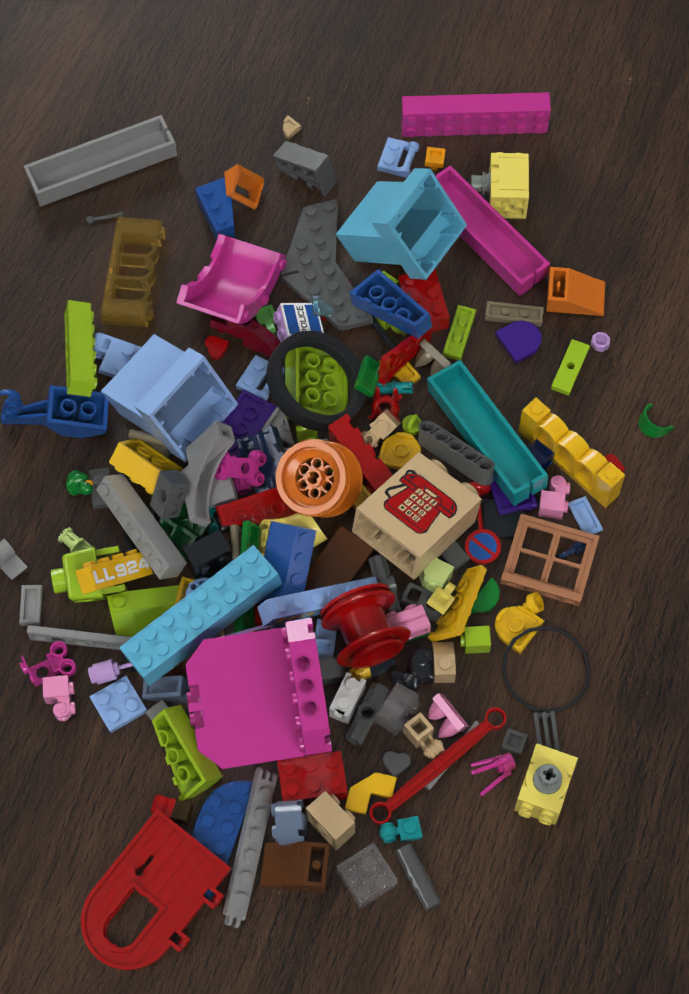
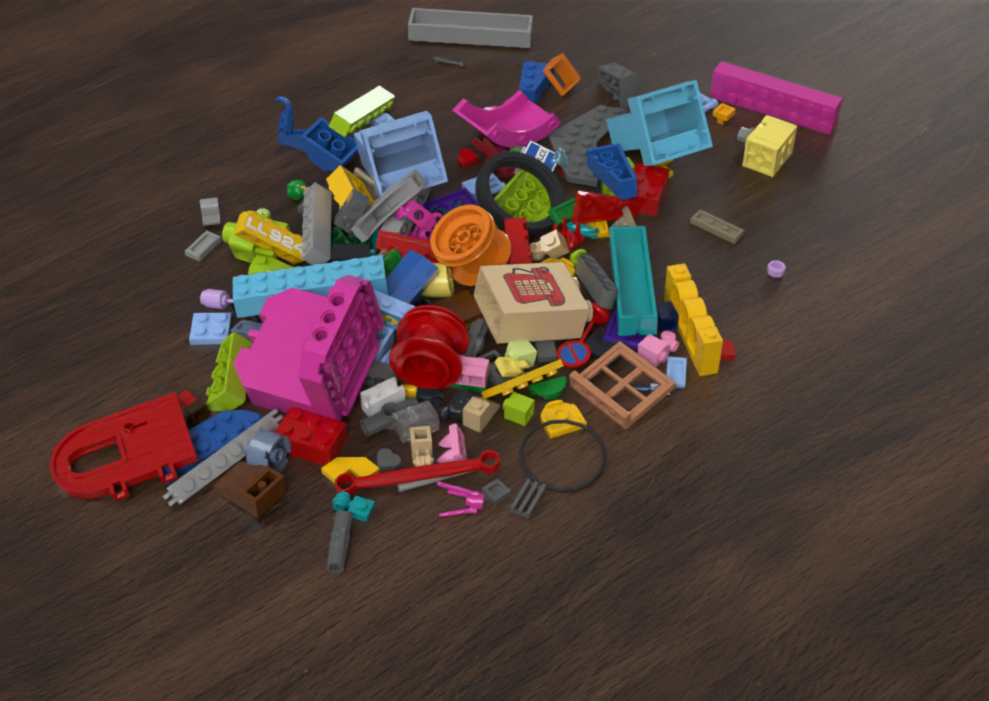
camera: 30 degrees right, 20 degrees down
(54, 664) = (190, 284): dark pink piece -> none
(59, 691) = (173, 302): bright pink brick -> none
(76, 637) = (208, 270): light grey tile -> none
(127, 311) = (467, 79): clear yellow fence -> none
(290, 127) = (627, 61): tan tile -> none
(331, 820) = (301, 465): tan brick -> none
(366, 875) = (297, 517): clear brick -> none
(459, 332) = (664, 220): lime tile -> none
(493, 236) = (733, 170): dark pink piece -> none
(520, 339) = (709, 243): dark purple tile -> none
(534, 603) = (587, 406): yellow tile -> none
(545, 784) = (495, 525): light yellow piece -> none
(573, 359) = (737, 273): lime tile -> none
(574, 292) = (775, 228): orange slope -> none
(649, 428) = (780, 341): green helmet -> none

